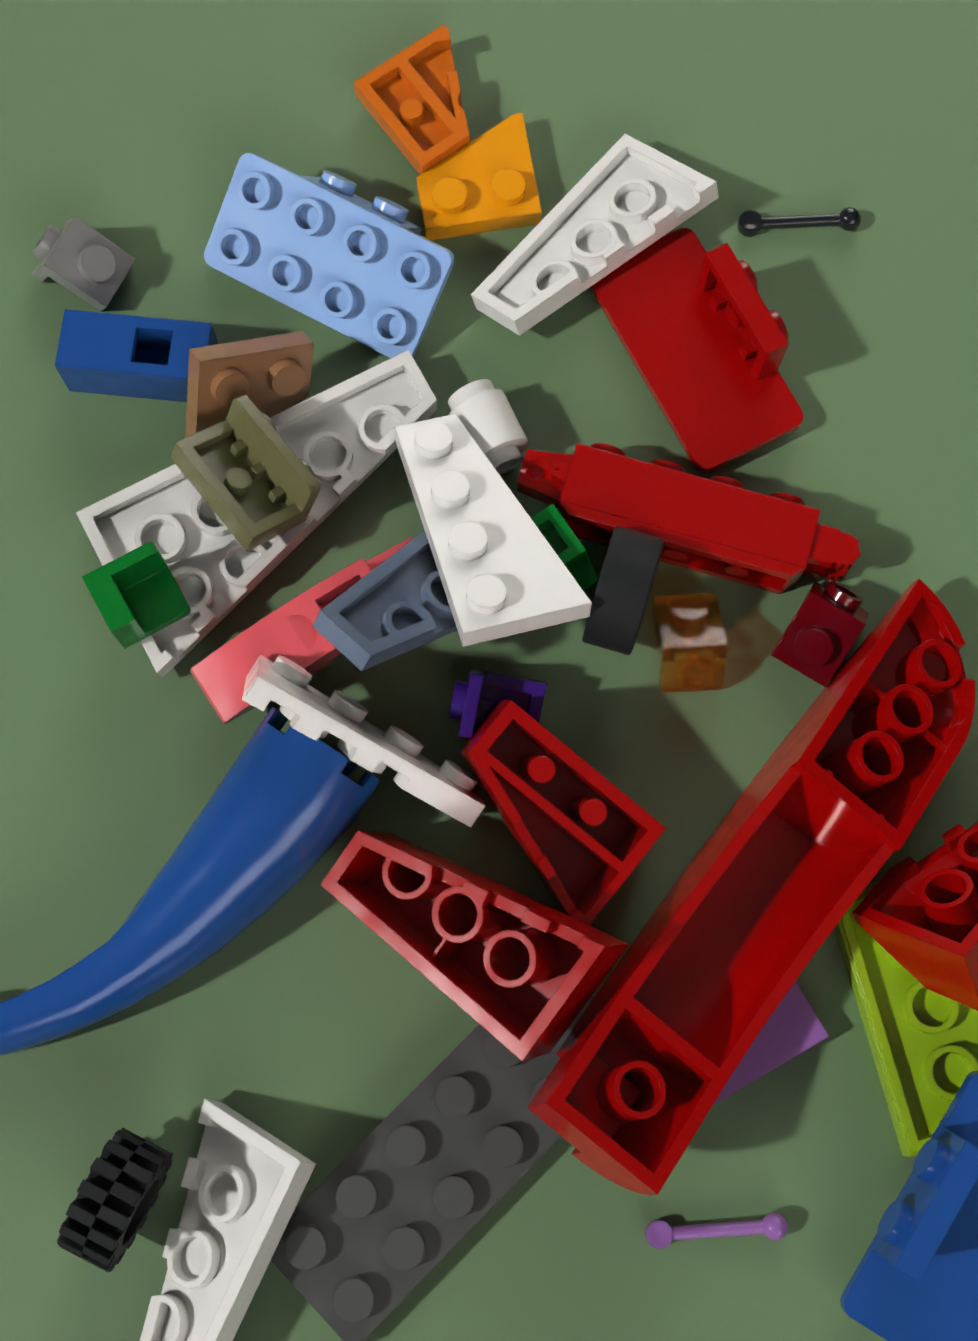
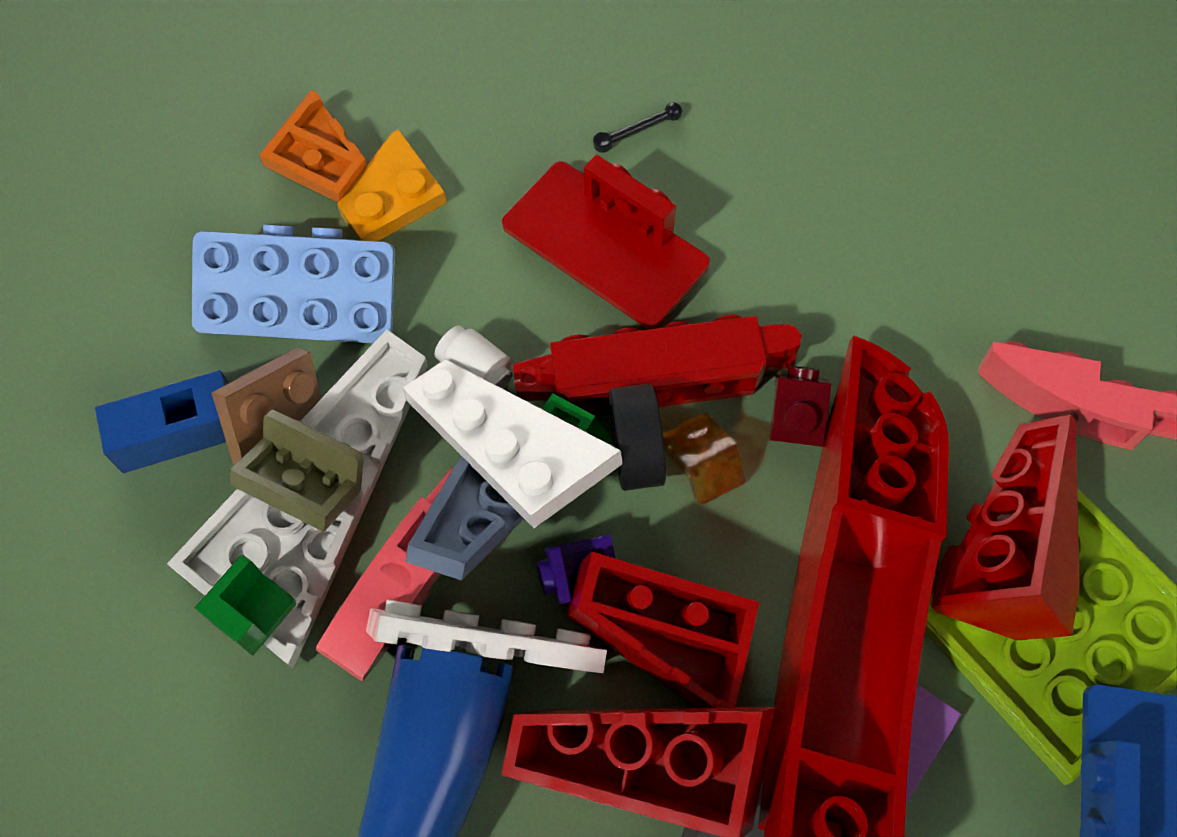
camera: 20 degrees left, 10 degrees down
(82, 262) = (94, 368): light grey bracket -> none
(598, 225) = (489, 189): white wing -> none

